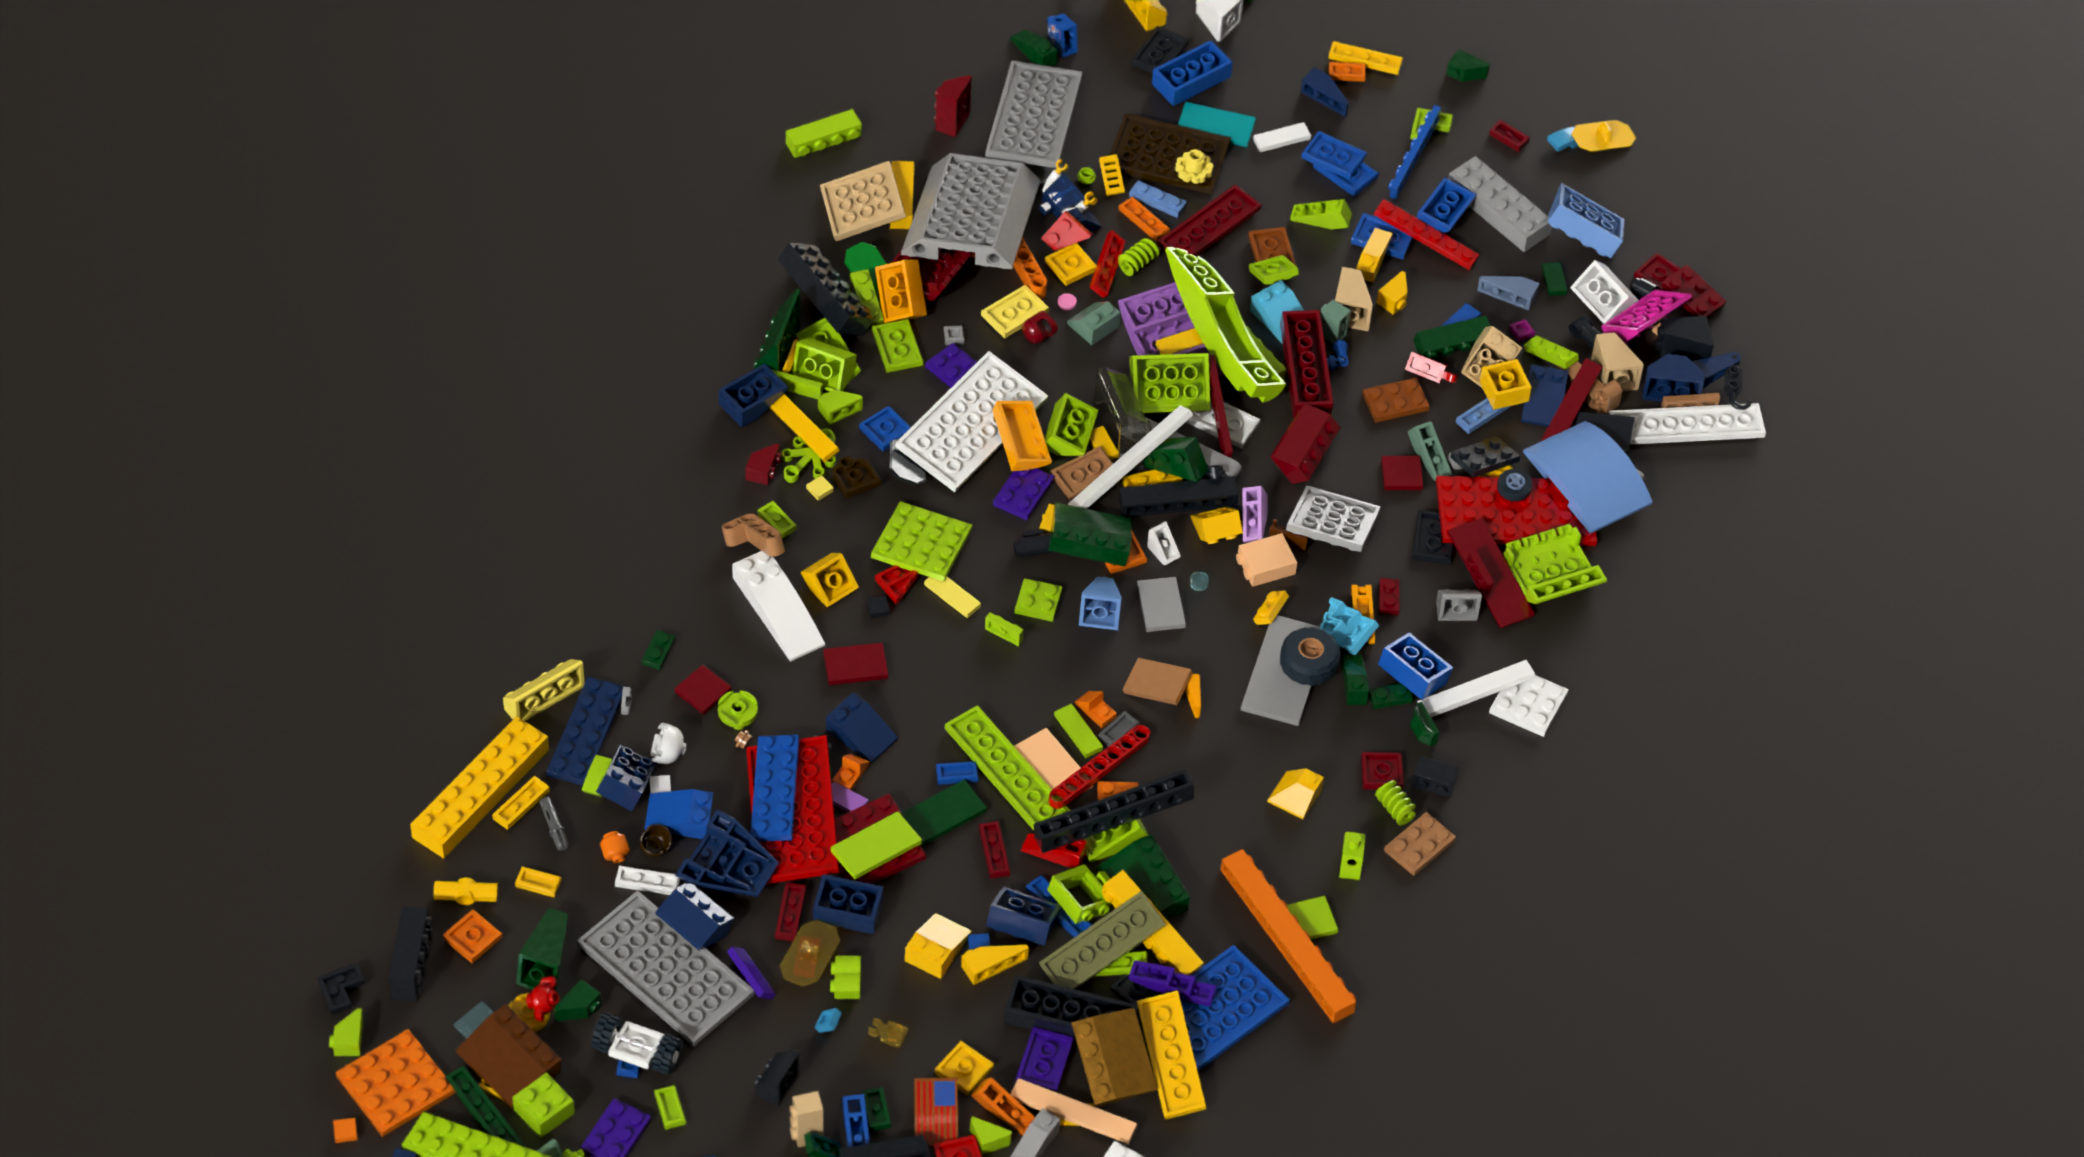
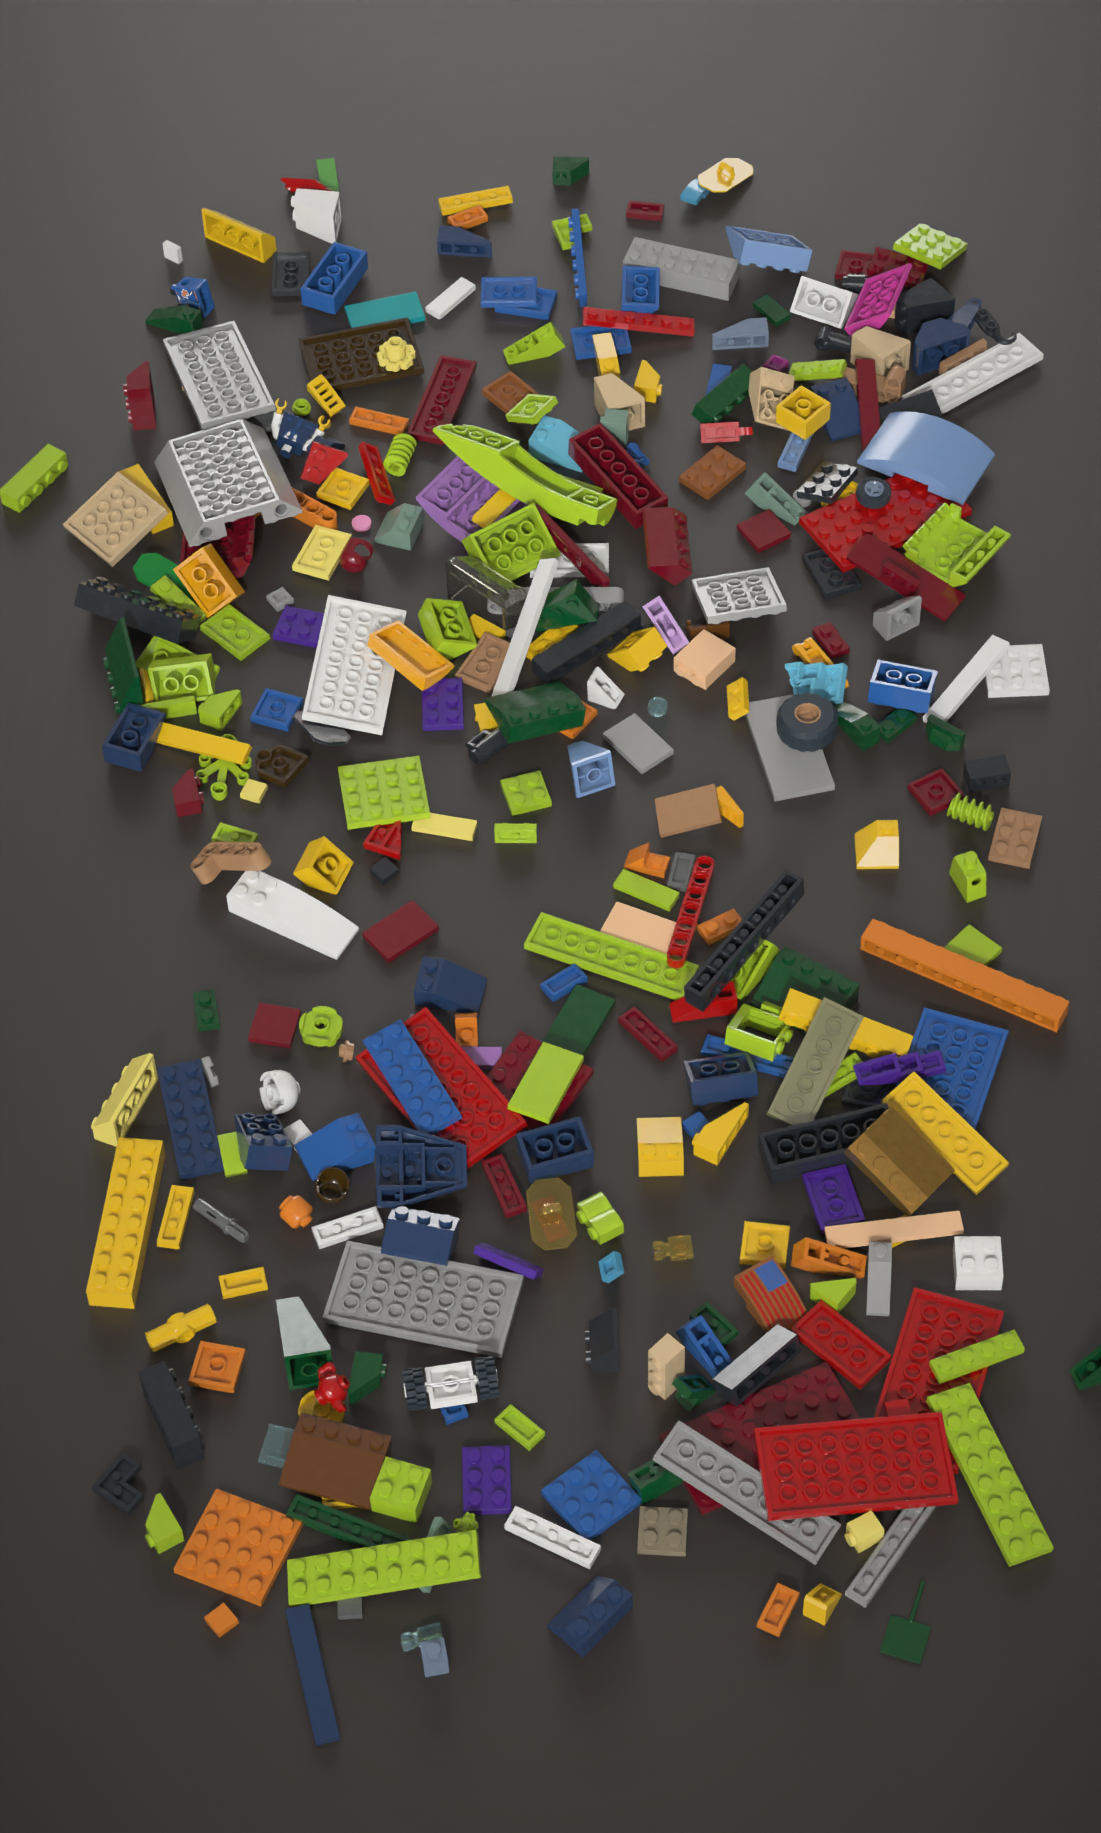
camera: 25 degrees left, 0 degrees up
(1158, 199) = (379, 398): medium blue plate -> none
(1215, 471) = (607, 604): black plate -> none
(1737, 286) = (930, 246): none -> lime plate

